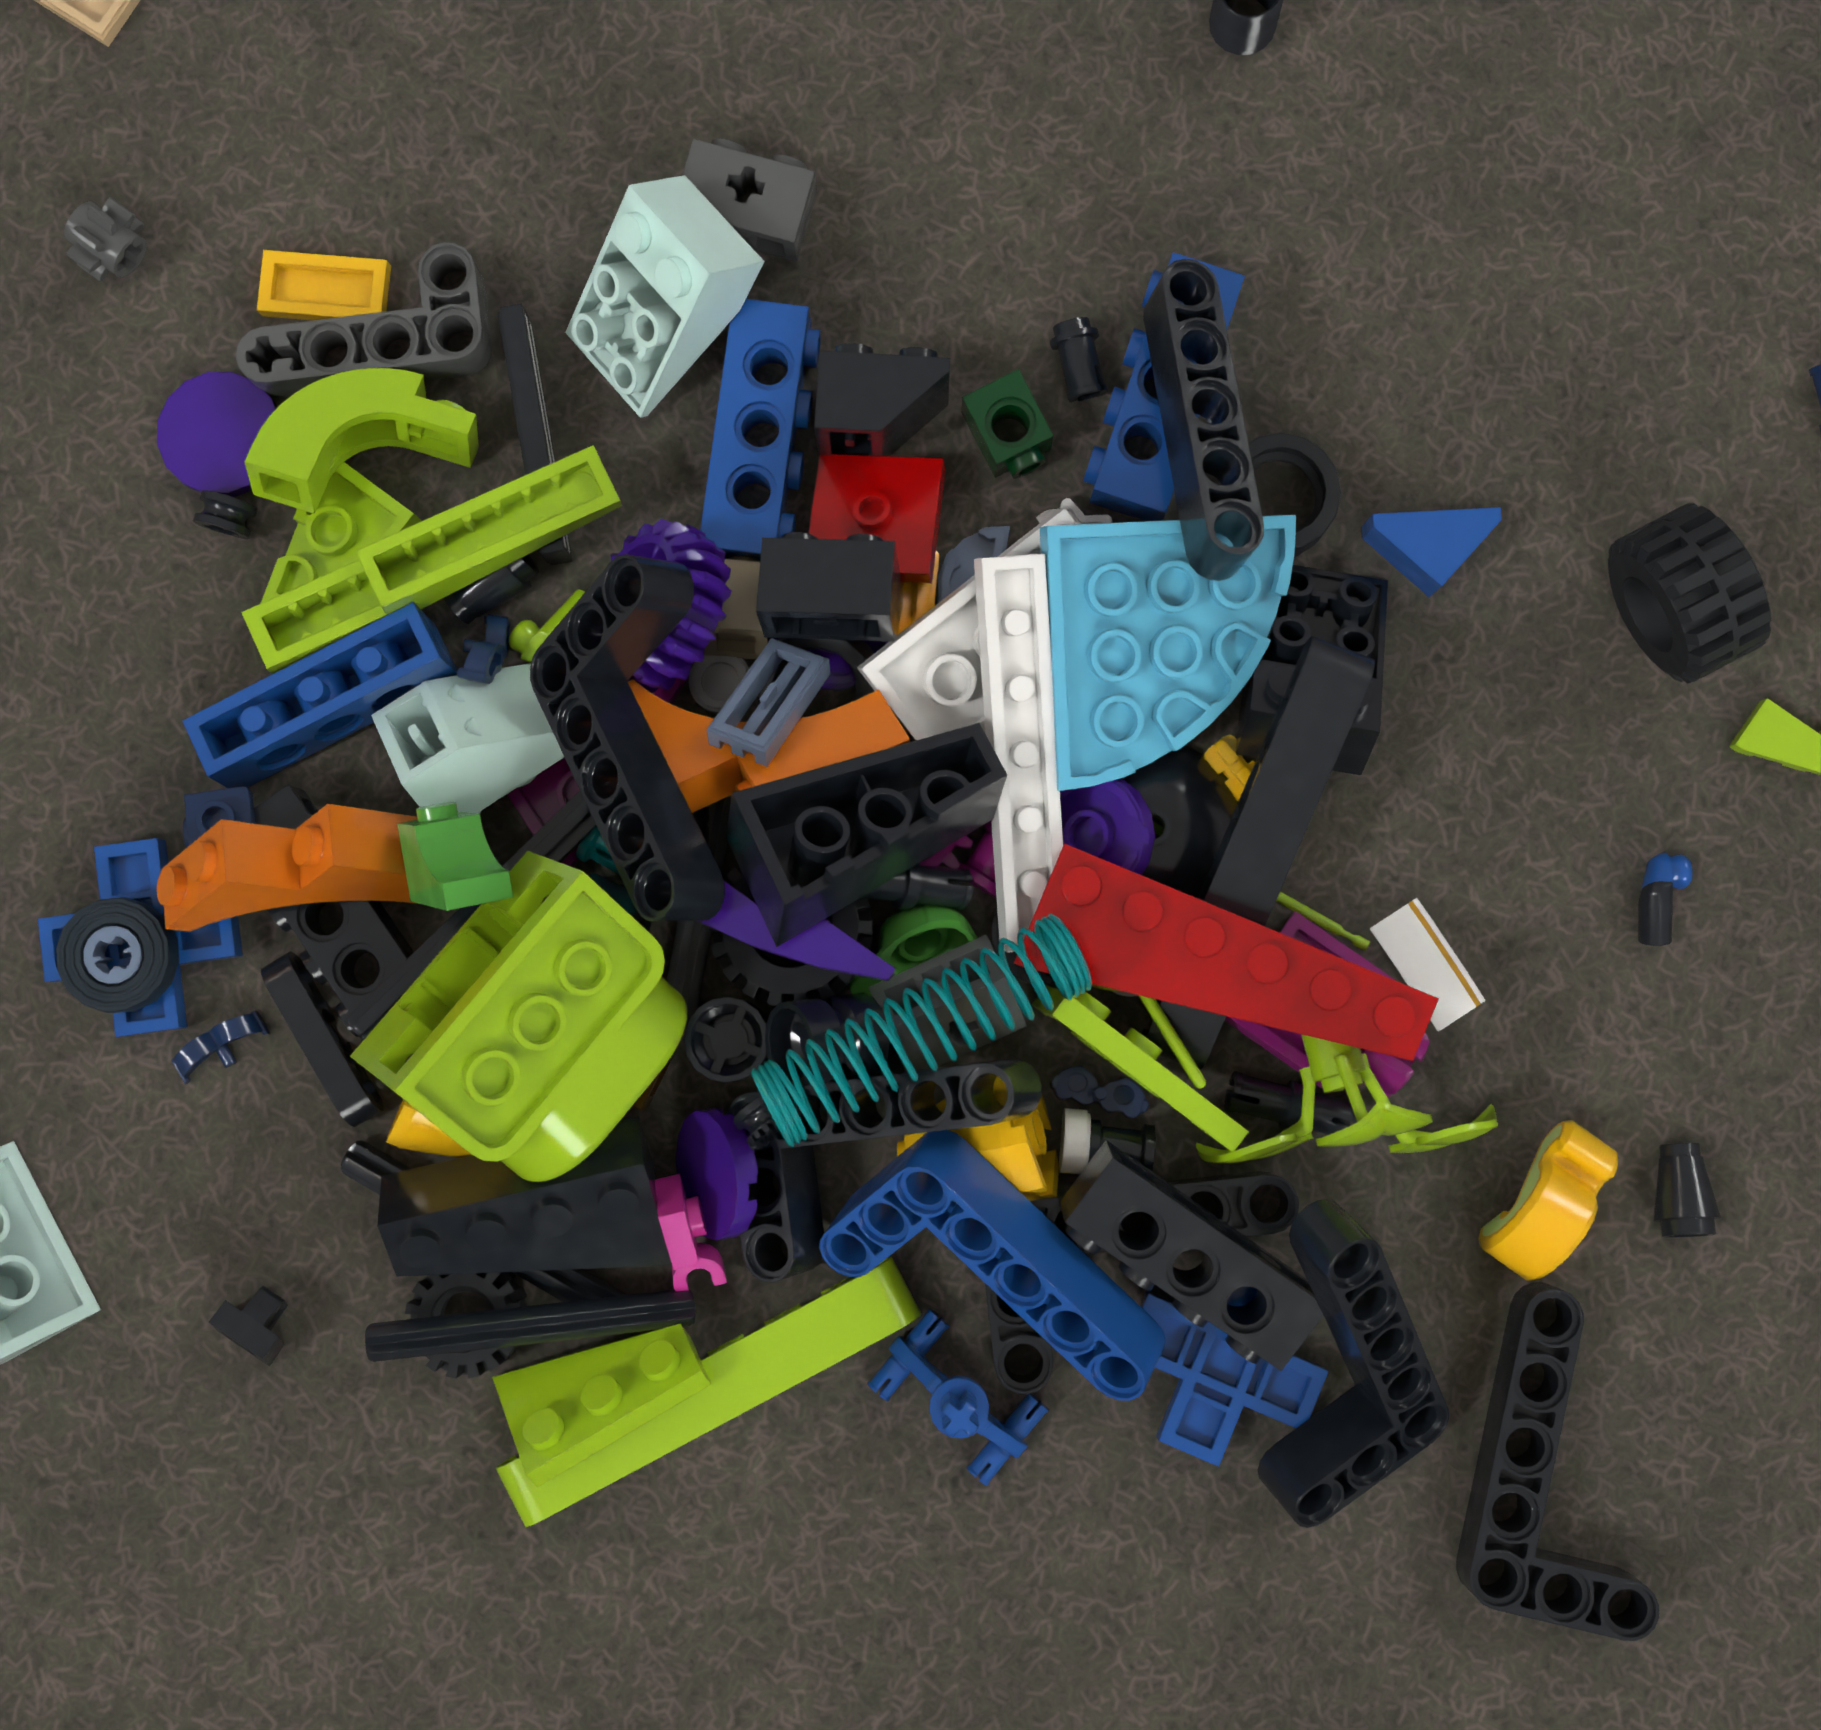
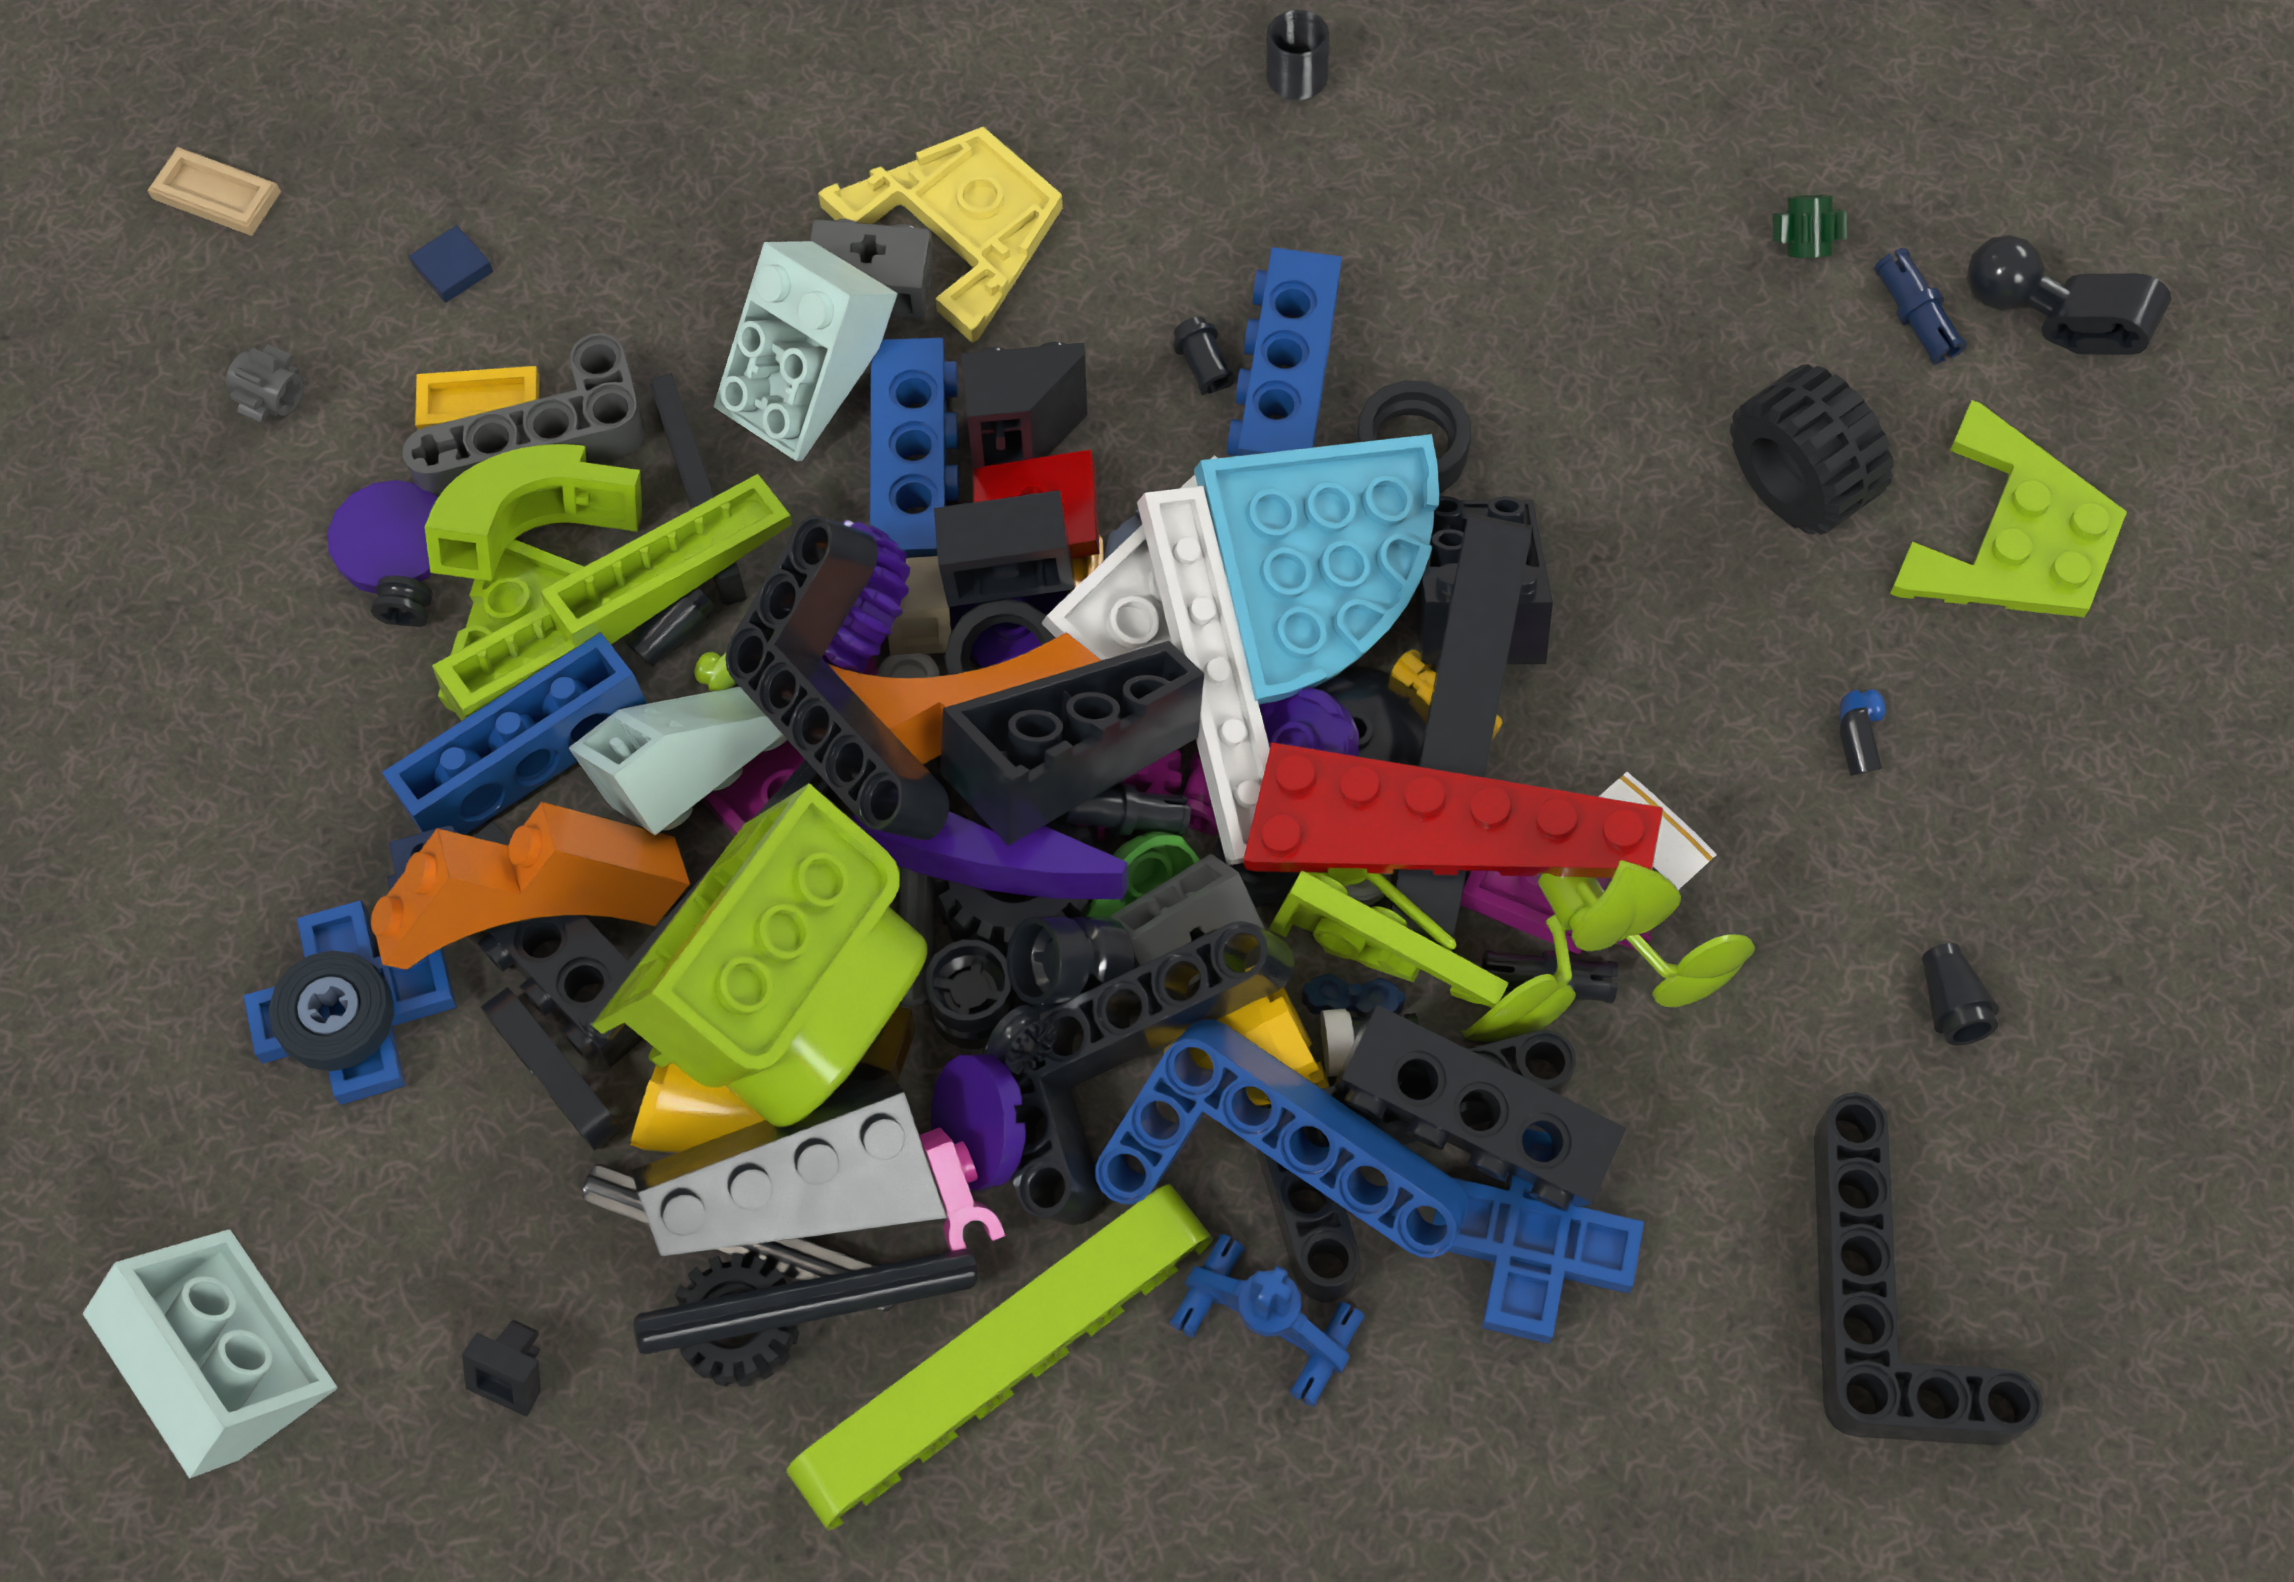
camera: 15 degrees left, 20 degrees down
(216, 1040) = (445, 1083): dark blue piece -> none
(311, 118) = (450, 263): none -> dark blue tile
(450, 859) = (669, 837): bright green arch -> none
(486, 656) = (675, 679): dark blue piece -> none
(595, 1397) = (884, 1368): lime wing -> none
(747, 739) = (973, 655): sand blue tile -> none
(872, 134) = (976, 202): none -> light yellow wing
(1008, 399) = (1146, 395): dark green brick -> none
(1062, 960) = (1269, 819): teal piece -> none
(1192, 445) = (1328, 362): black beam -> none
(1395, 1396) = (1719, 1226): black beam -> none
(1429, 543) = (1561, 454): blue slope -> none
(1553, 1204) = (1825, 1023): yellow animal -> none
(1753, 310) = (1810, 226): none -> dark green gear

